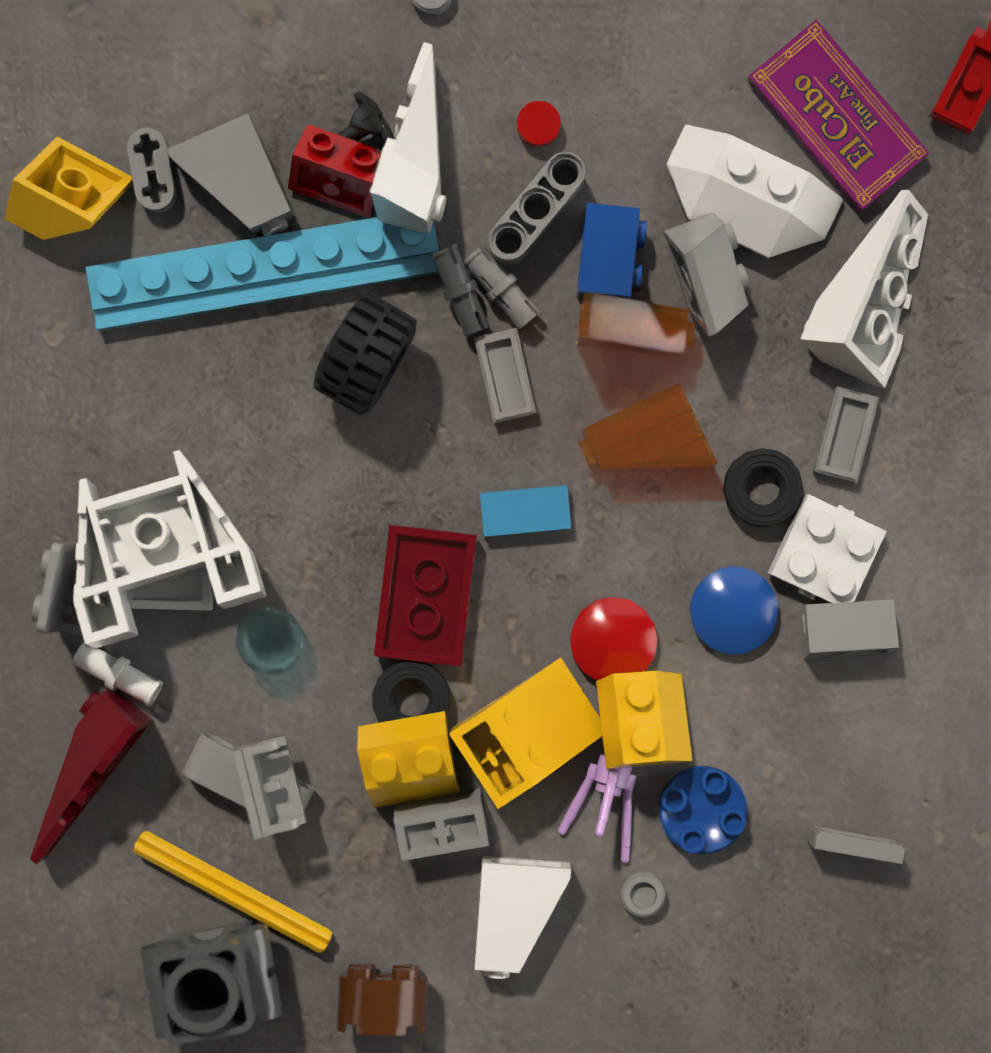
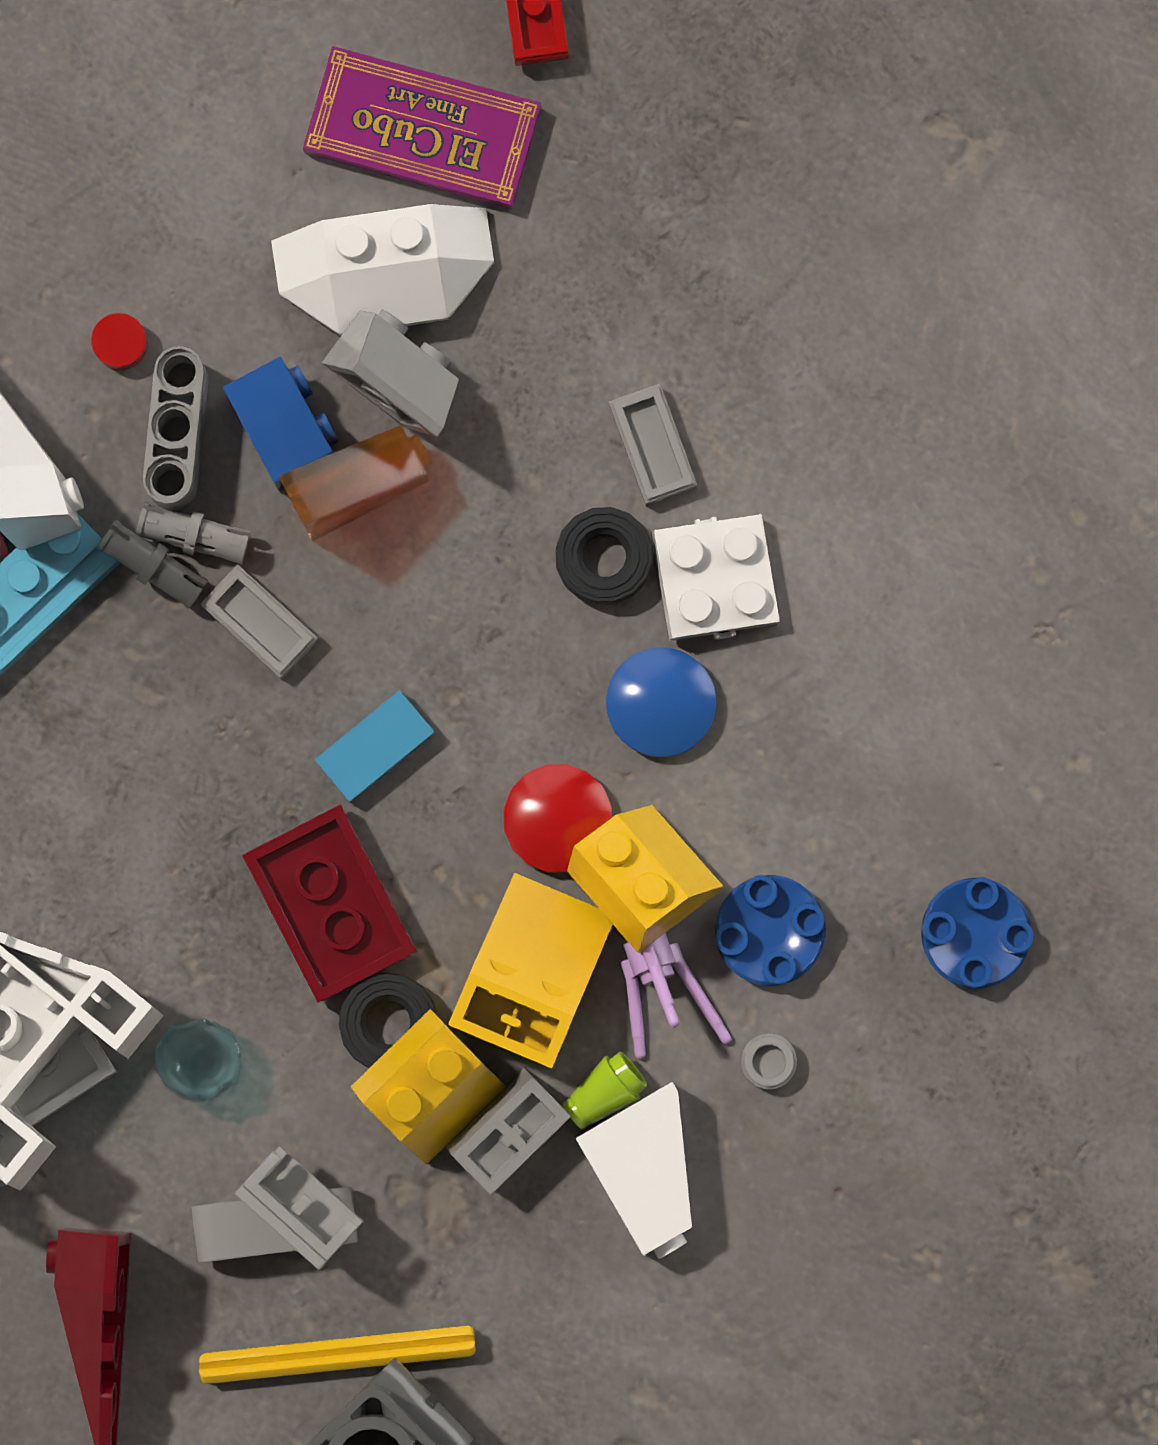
camera: 30 degrees left, 5 degrees down
(117, 673) = (61, 1206): white pin -> none
(364, 353) = (97, 693): black tyre -> none
(382, 1001) = (569, 1354): reddish brown brick -> none
(523, 841) = (605, 1090): none -> lime cone
(649, 436) = (450, 582): clear orange slope -> none
(837, 904) = (976, 933): none -> blue dish
(849, 629) = (792, 640): light grey hinge -> none
(856, 844) = (952, 856): light grey tile -> none
(862, 306) = (578, 304): white wedge -> none

